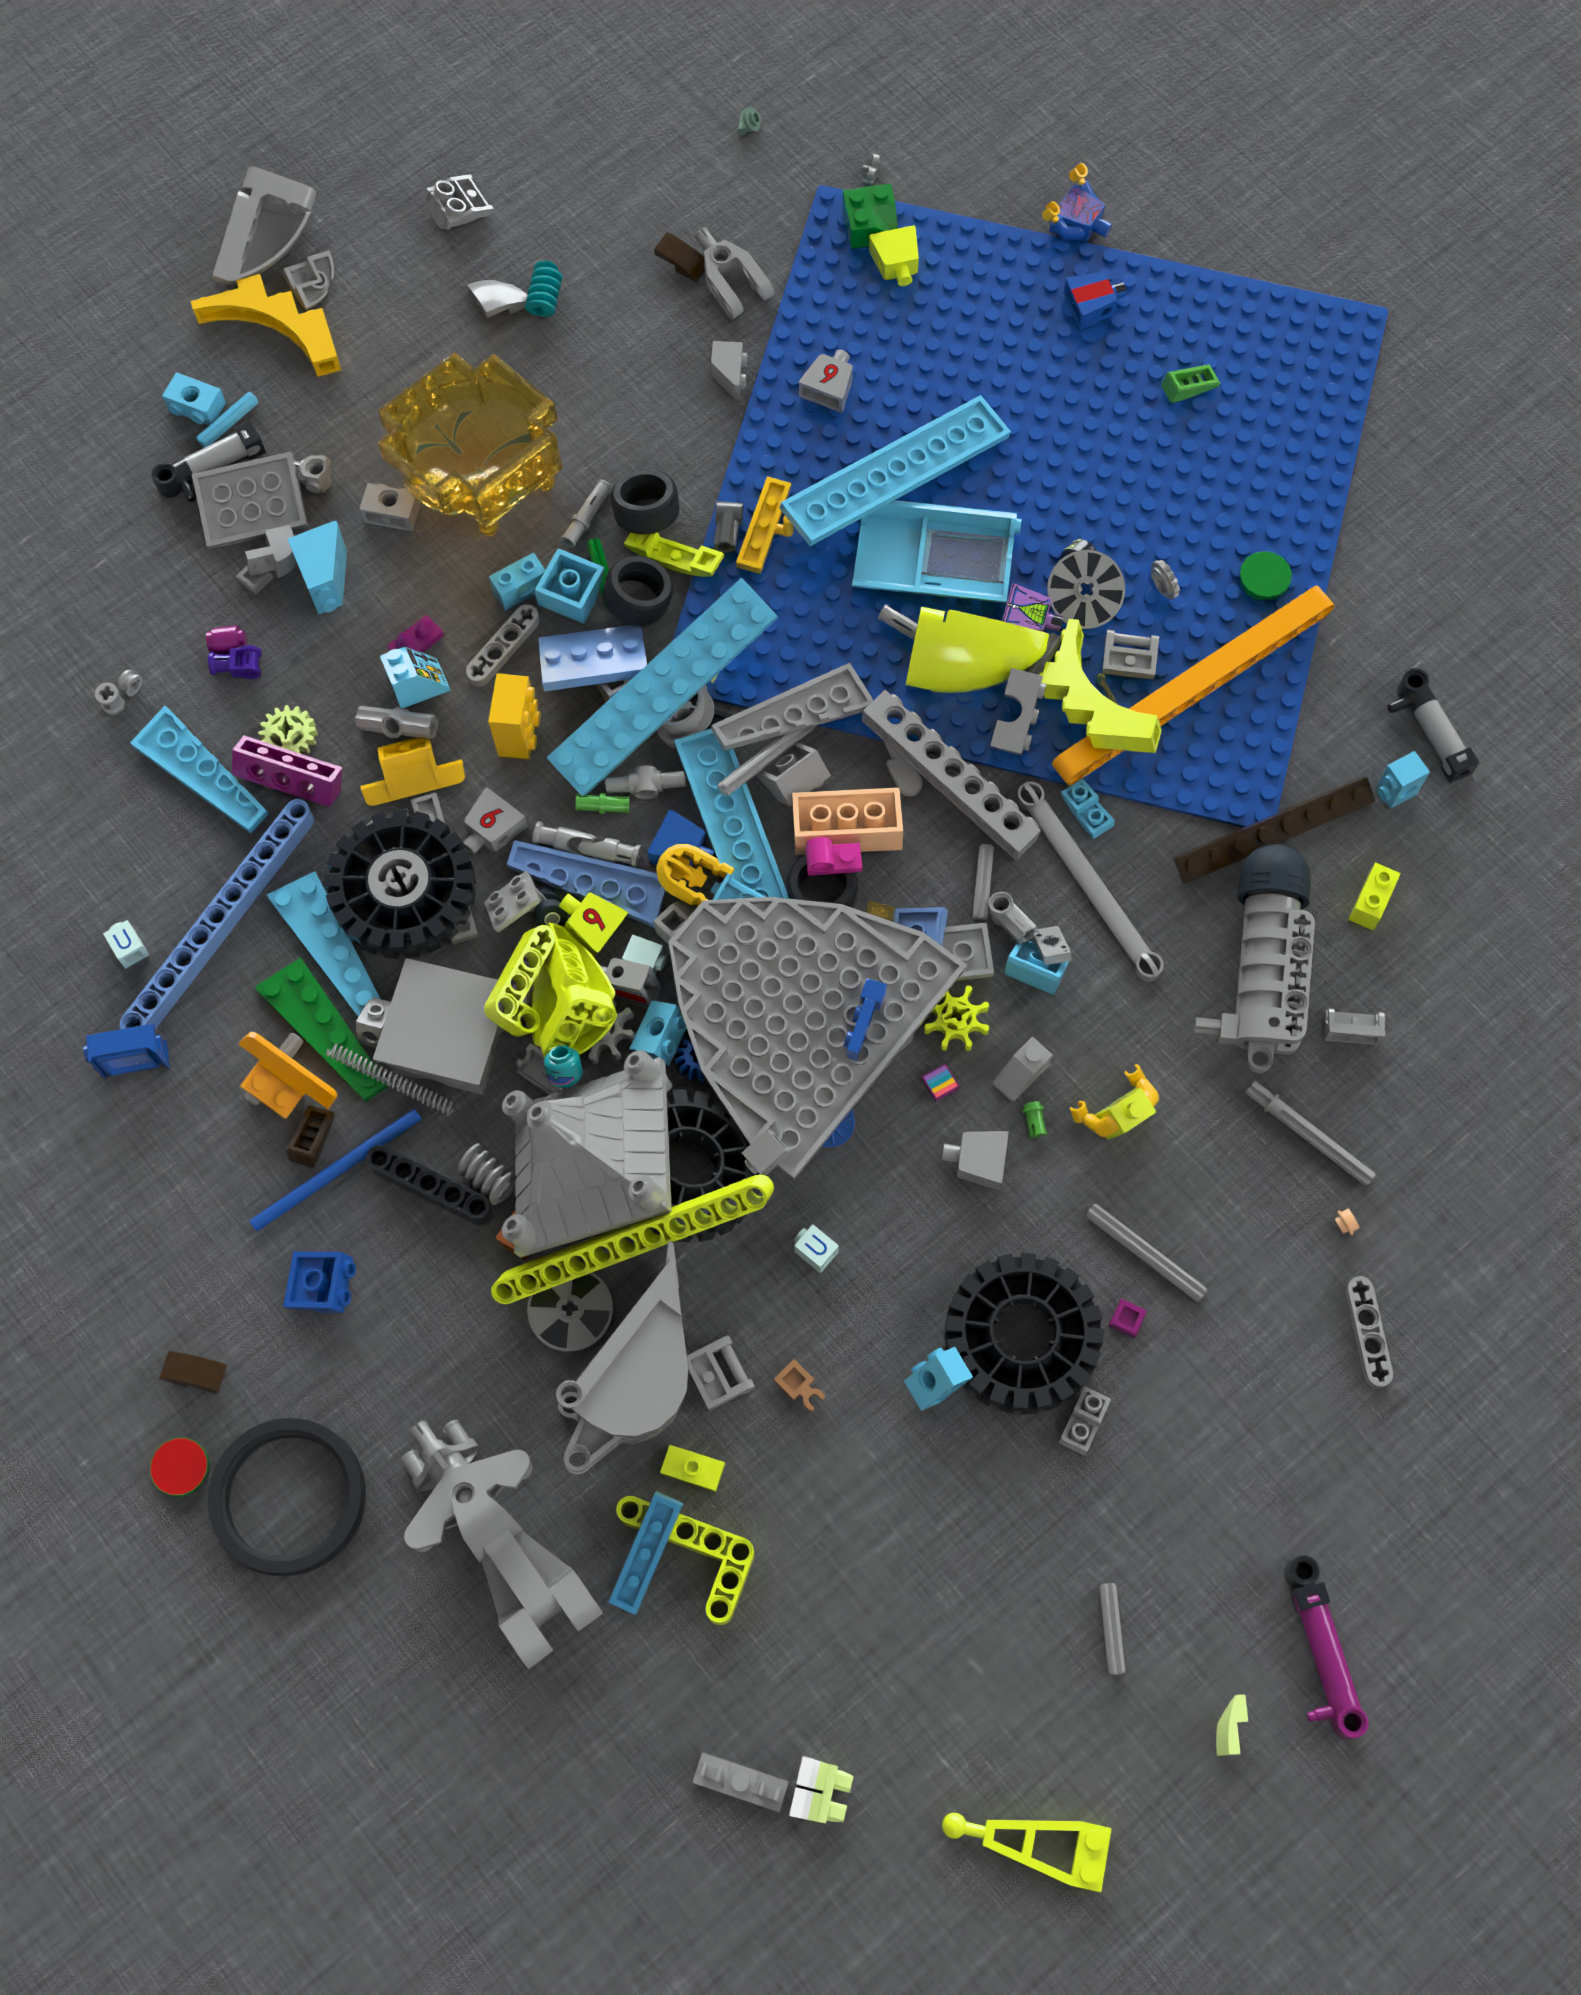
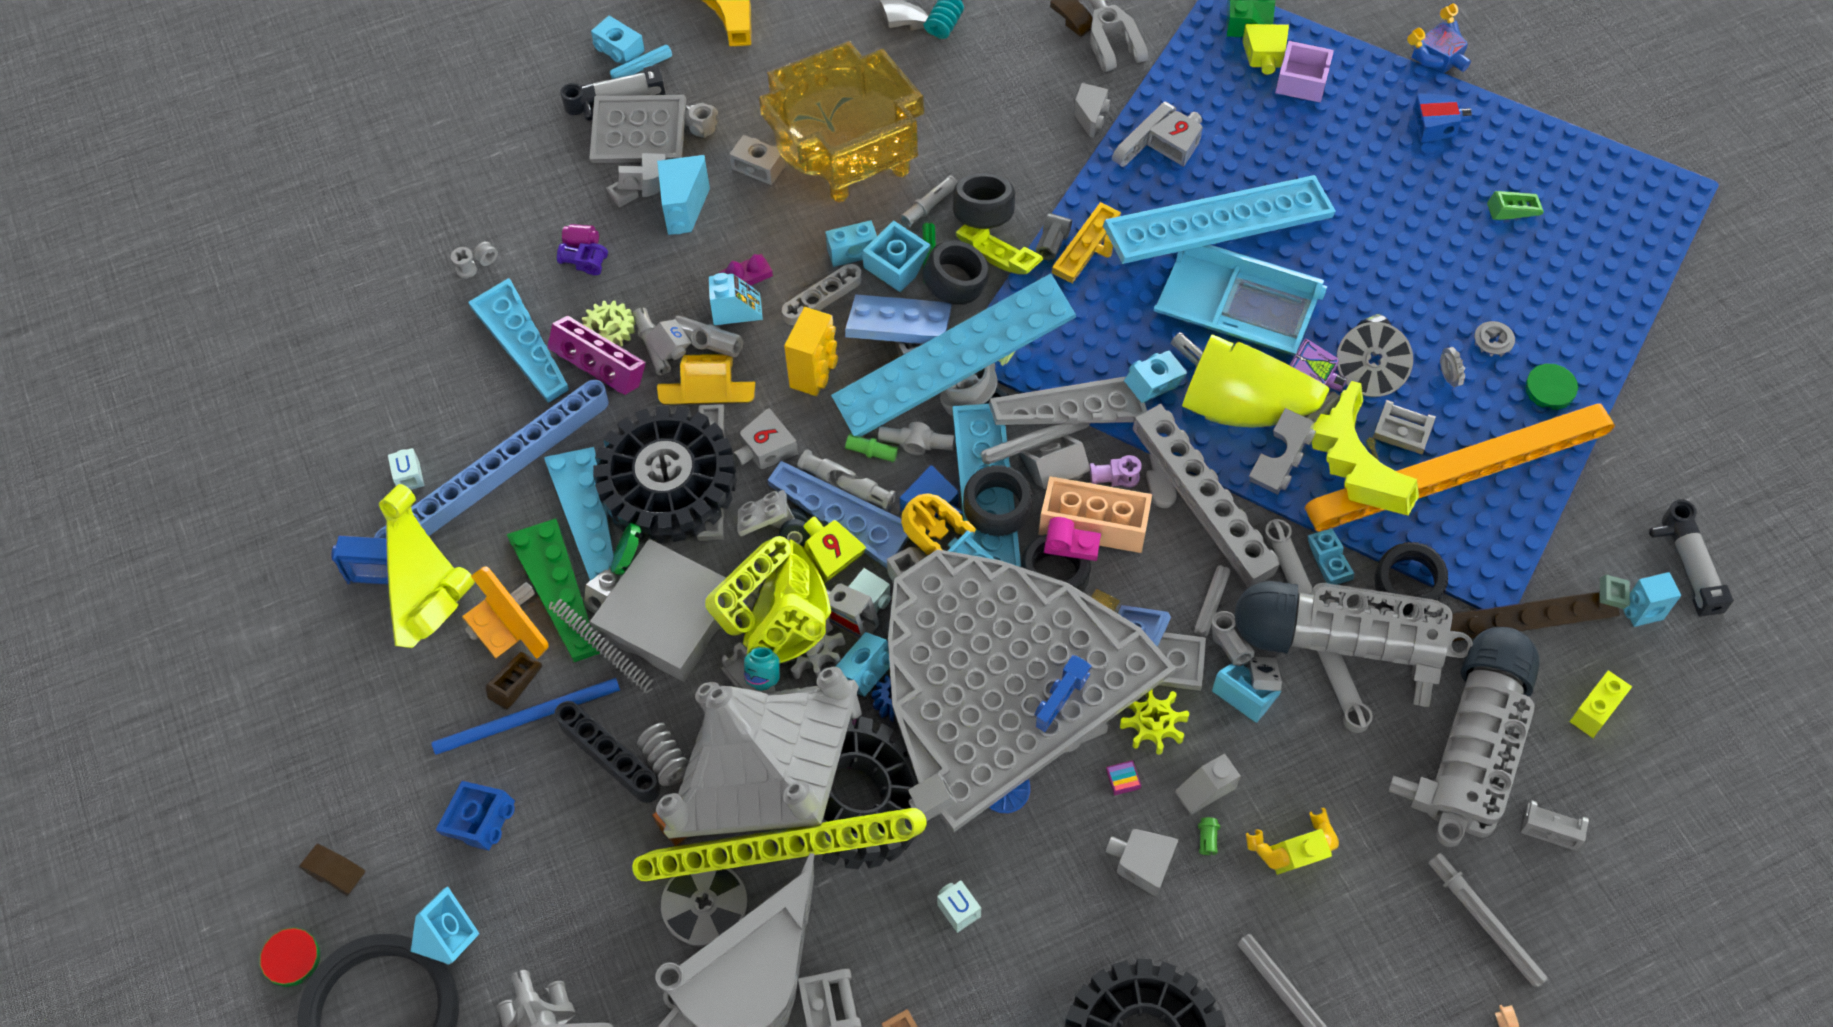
camera: 15 degrees right, 10 degrees down
(184, 1056) = (420, 578): none -> neon yellow panel
(326, 1402) = (442, 929): none -> medium azure slope
(332, 731) = (645, 327): none -> light grey pin
(359, 736) = (669, 340): none -> light grey brick
(385, 975) = (625, 549): none -> green tile
(754, 807) = (997, 477): none -> black tyre
(790, 389) = (1139, 137): none -> light grey beam
(857, 770) = (1117, 472): none -> lavender connector
(871, 659) = (1155, 376): none -> medium azure brick
(943, 277) = (1304, 71): none -> lavender piece
(1052, 886) = (1277, 616): none -> light grey piece
(1180, 787) = (1419, 553): none -> black tyre
(1192, 529) = (1491, 330): none -> light grey gear
(1366, 780) = (1614, 591): none -> sand green tile

